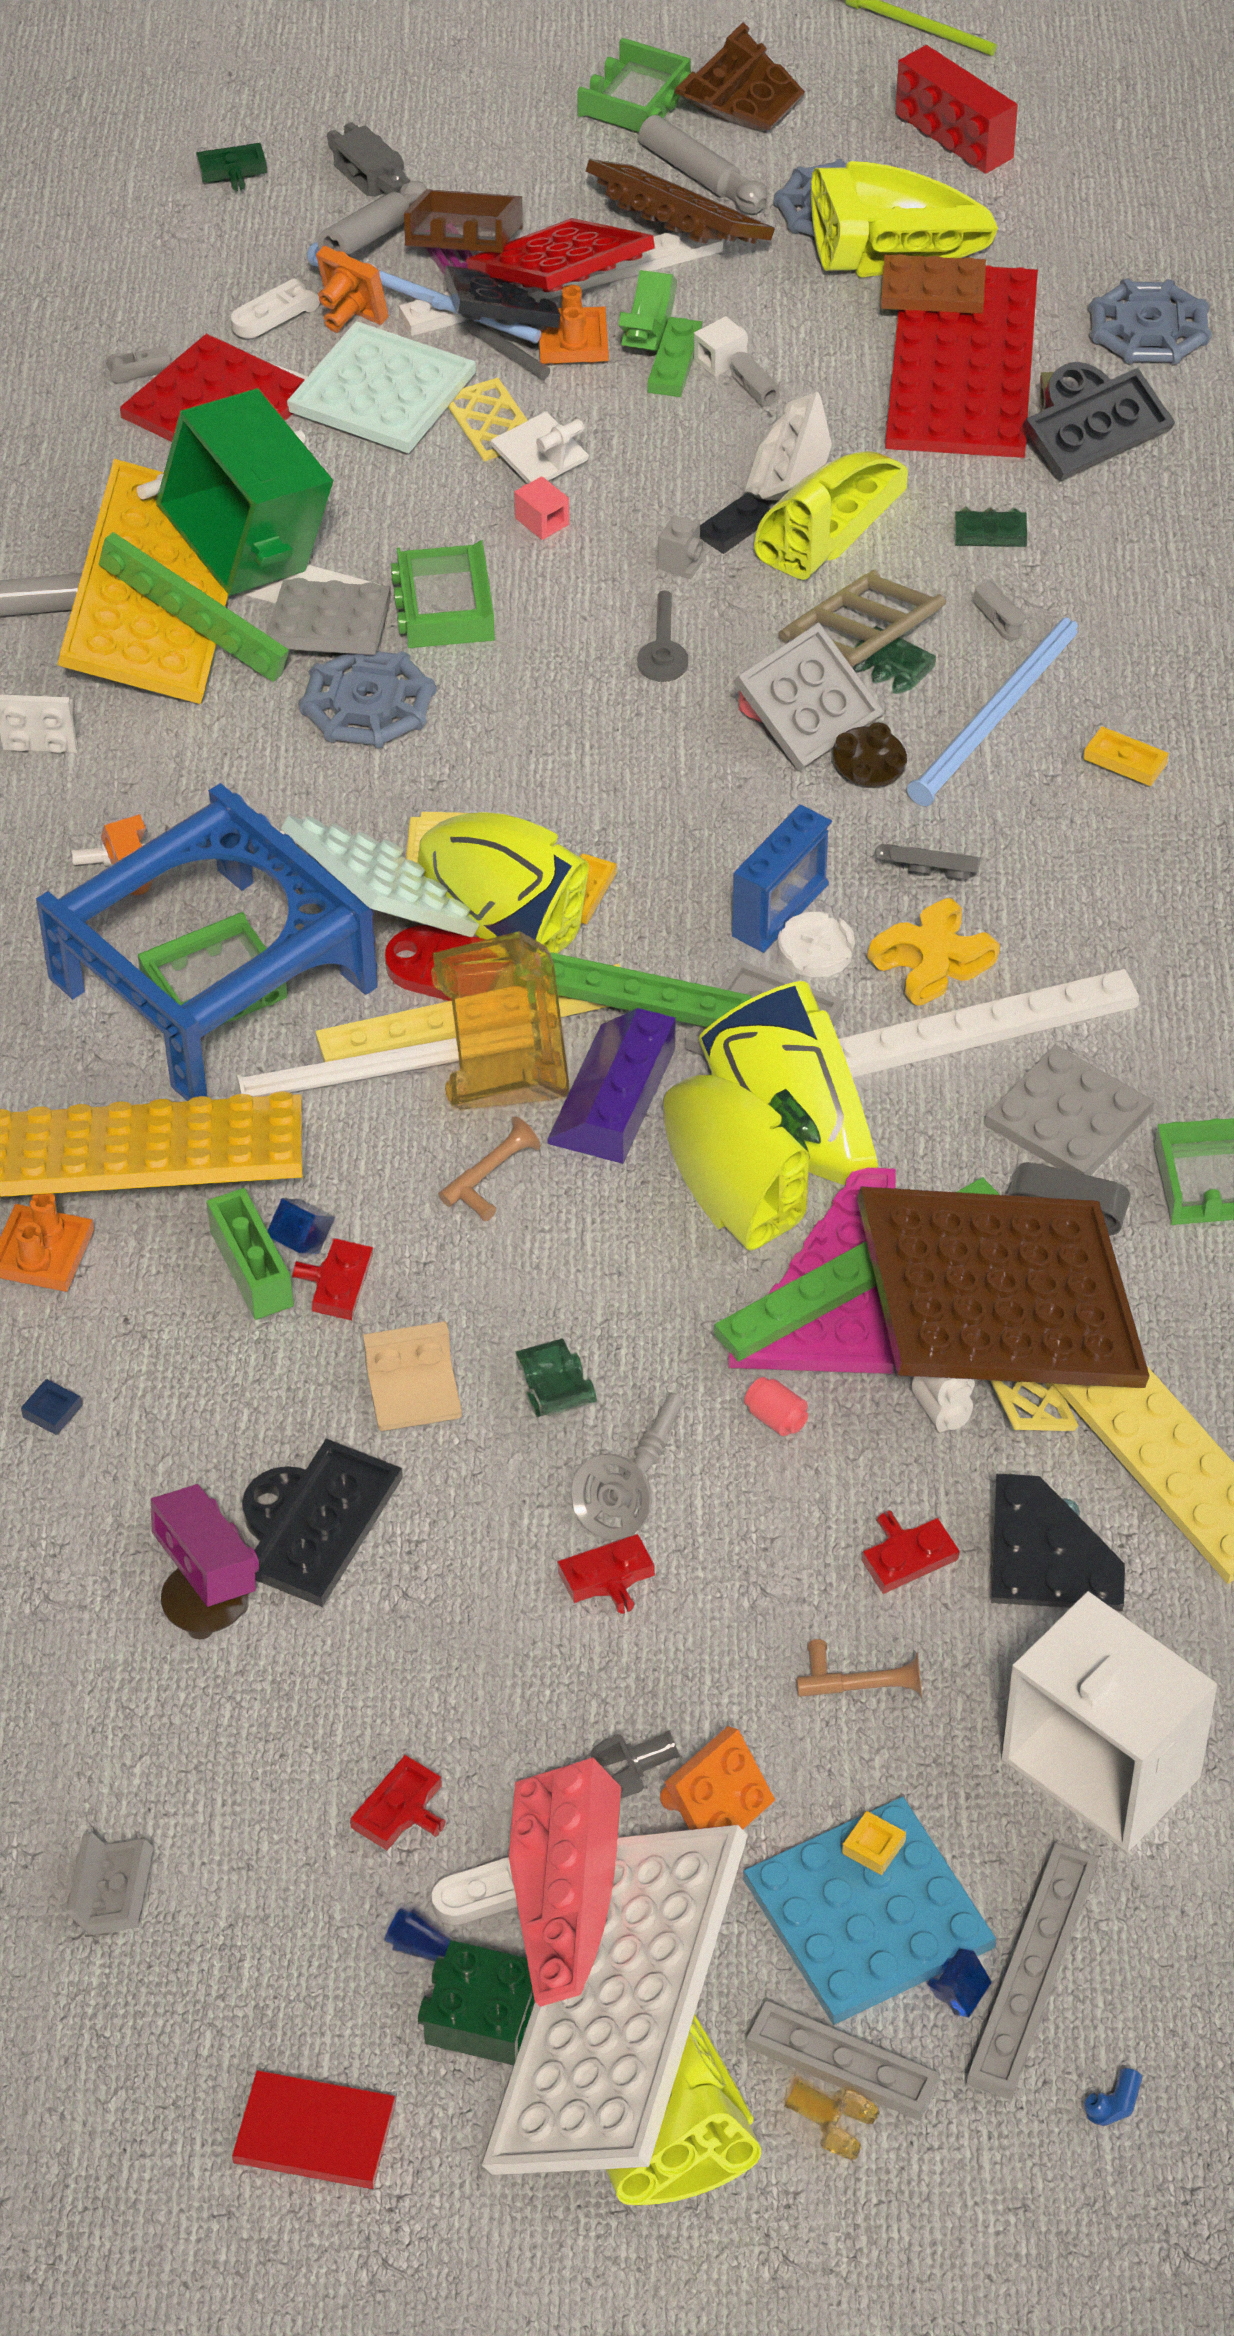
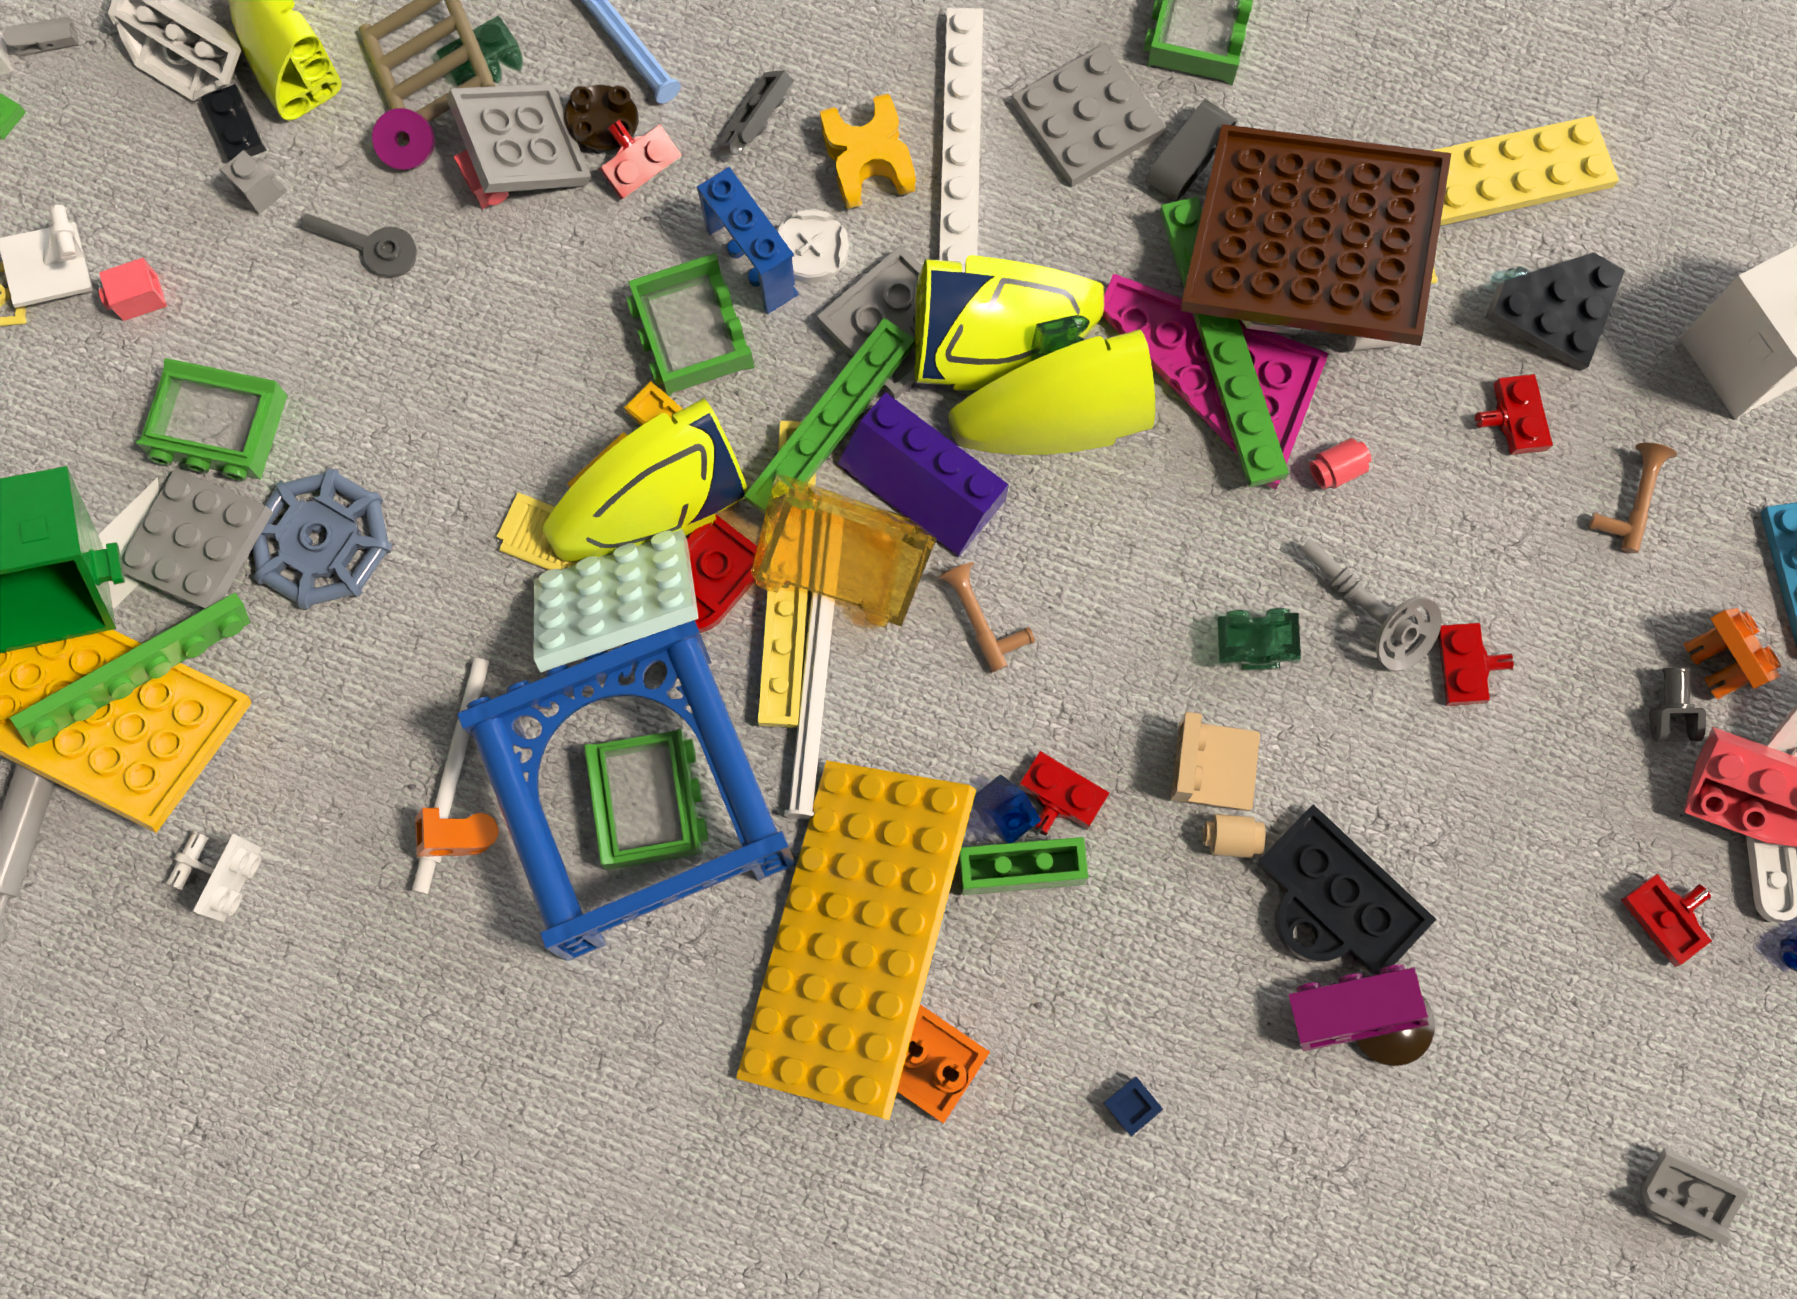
camera: 70 degrees left, 25 degrees up
(345, 1415) = (1234, 836): none -> tan brick
(682, 875) = (689, 324): none -> window
(766, 618) = (386, 135): none -> magenta piece
(838, 791) = (637, 158): none -> plate

